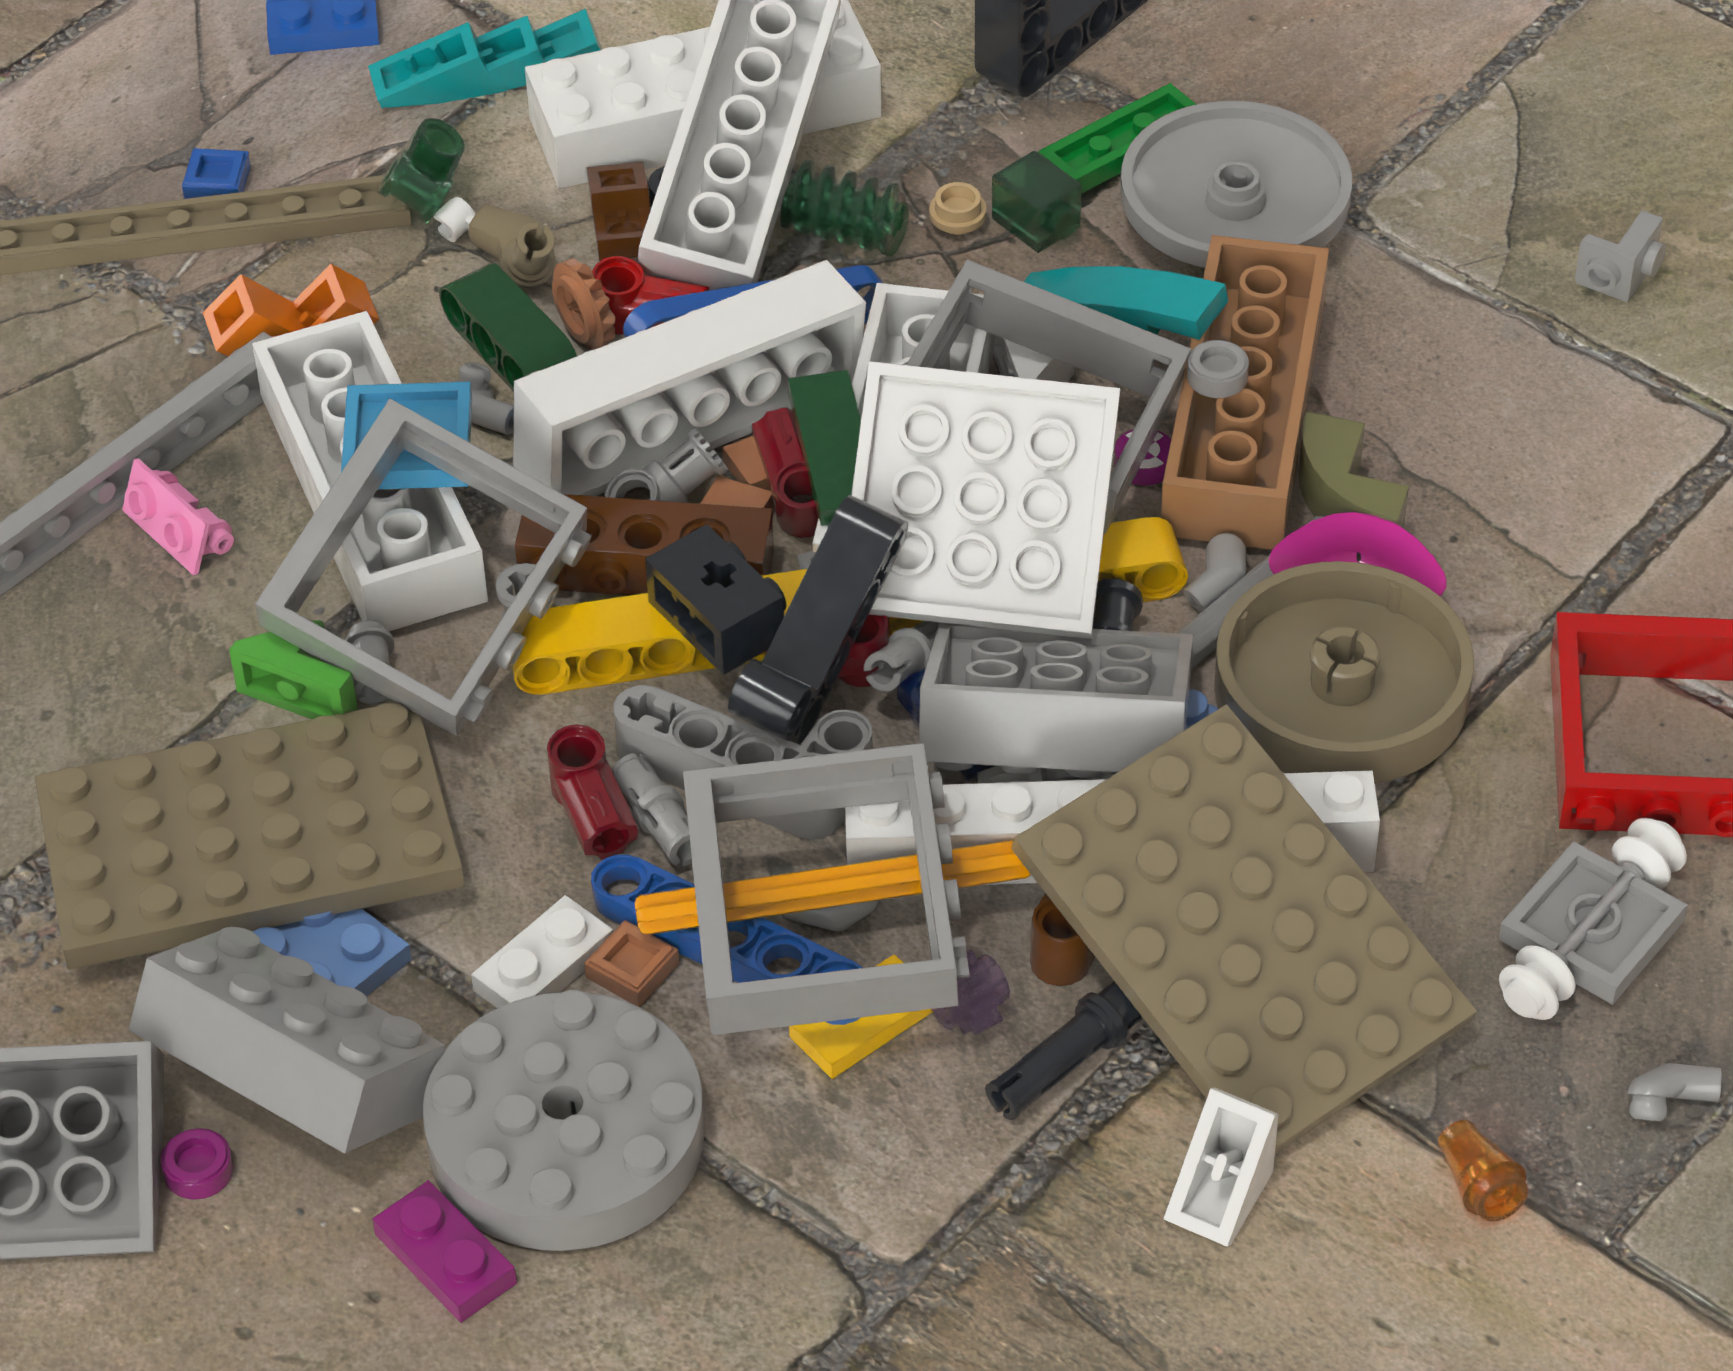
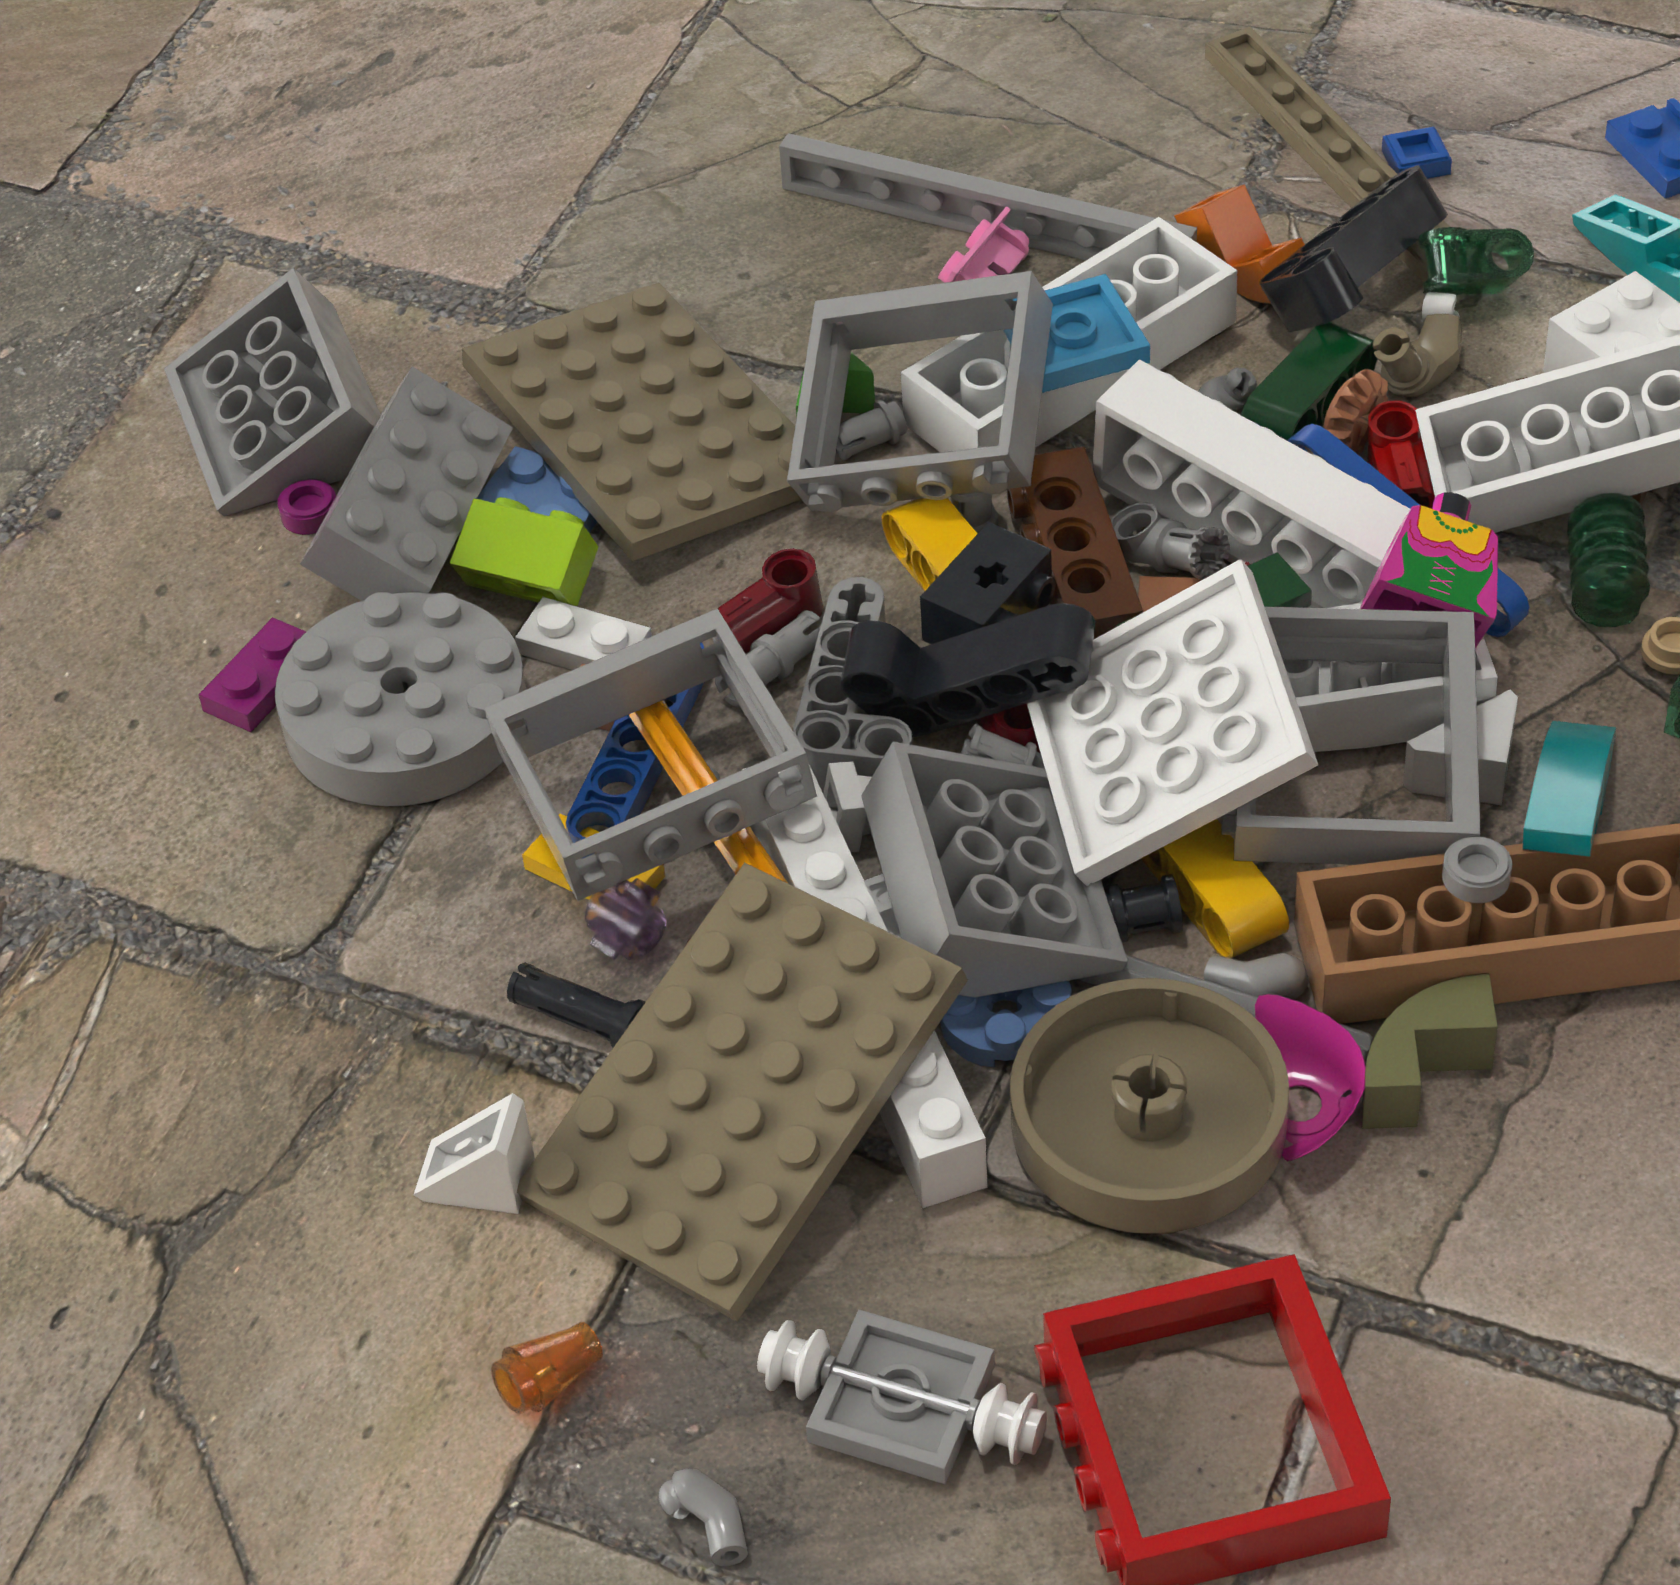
camera: 75 degrees right, 0 degrees up
(386, 269) = (1325, 273): none -> black beam
(422, 958) = (524, 552): none -> lime brick
(892, 271) = (1439, 564): none -> torso

